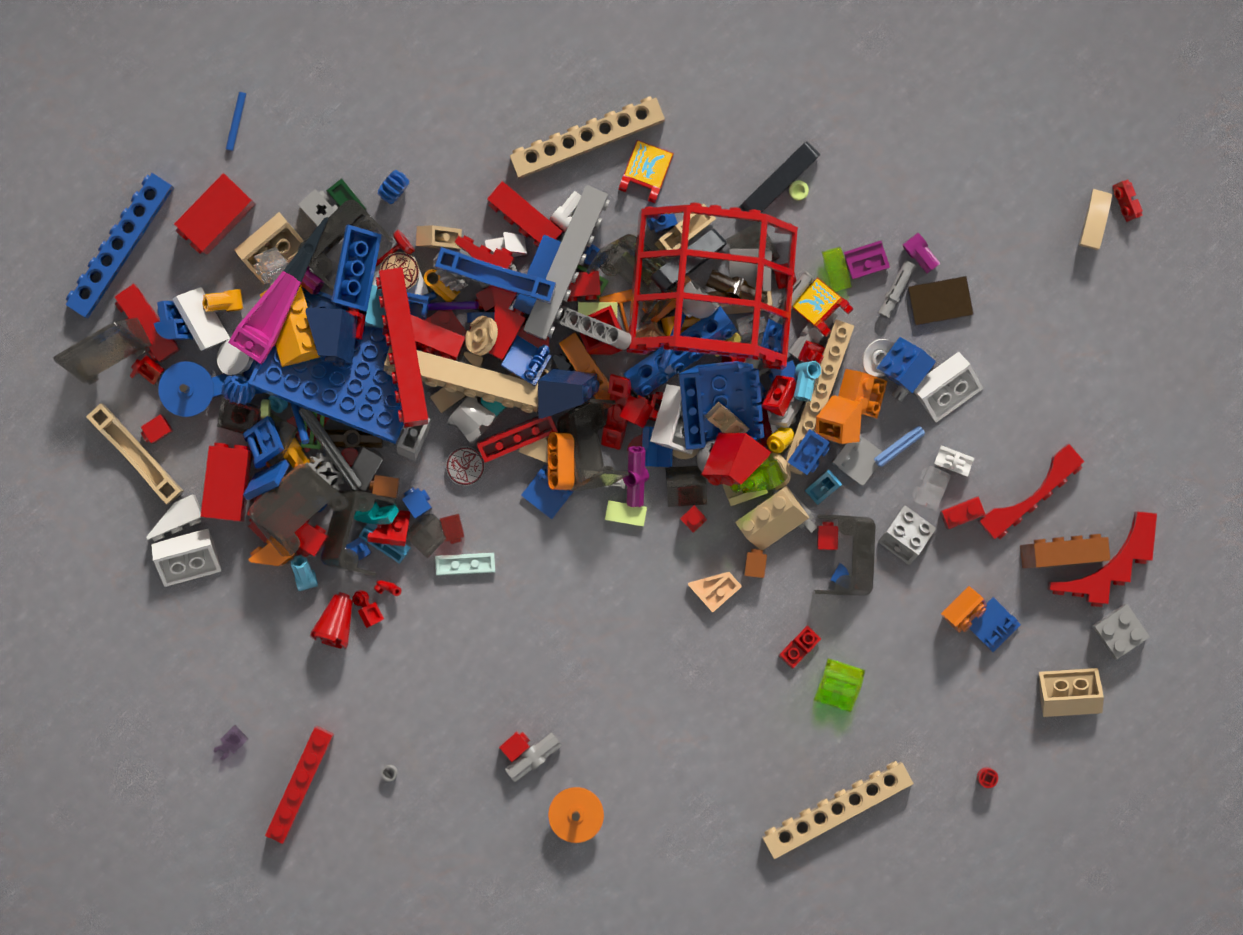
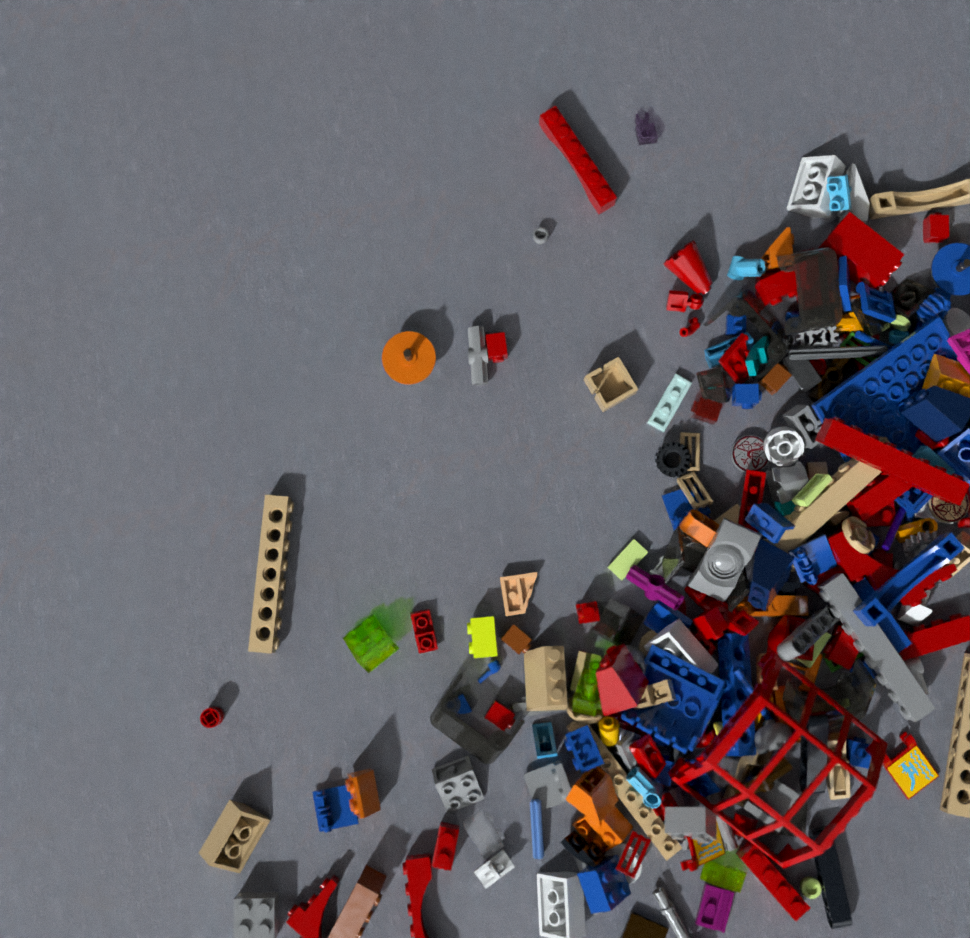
camera: 125 degrees right, 5 degrees down
(186, 534) = (839, 192): none -> medium azure hips
(443, 443) = (783, 446): none -> white cylinder
(468, 398) = (812, 489): none -> yellowish green tile
(484, 624) = (612, 385): none -> tan piece
(512, 510) = (689, 446): none -> tan tile
(518, 540) = (681, 468): none -> black tyre
(520, 418) = (768, 522): none -> blue panel
(537, 482) = (701, 503): none -> tan tile
(576, 434) = (724, 560): none -> light grey slope
(772, 593) = (483, 637): none -> neon yellow brick
(791, 567) = (494, 667): none -> blue hand
(809, 327) = (690, 821): none -> light grey brick
(813, 226) = (773, 880): none -> red brick
(850, 358) = (641, 838): none -> red tile
(891, 392) = (588, 854): none -> black slope

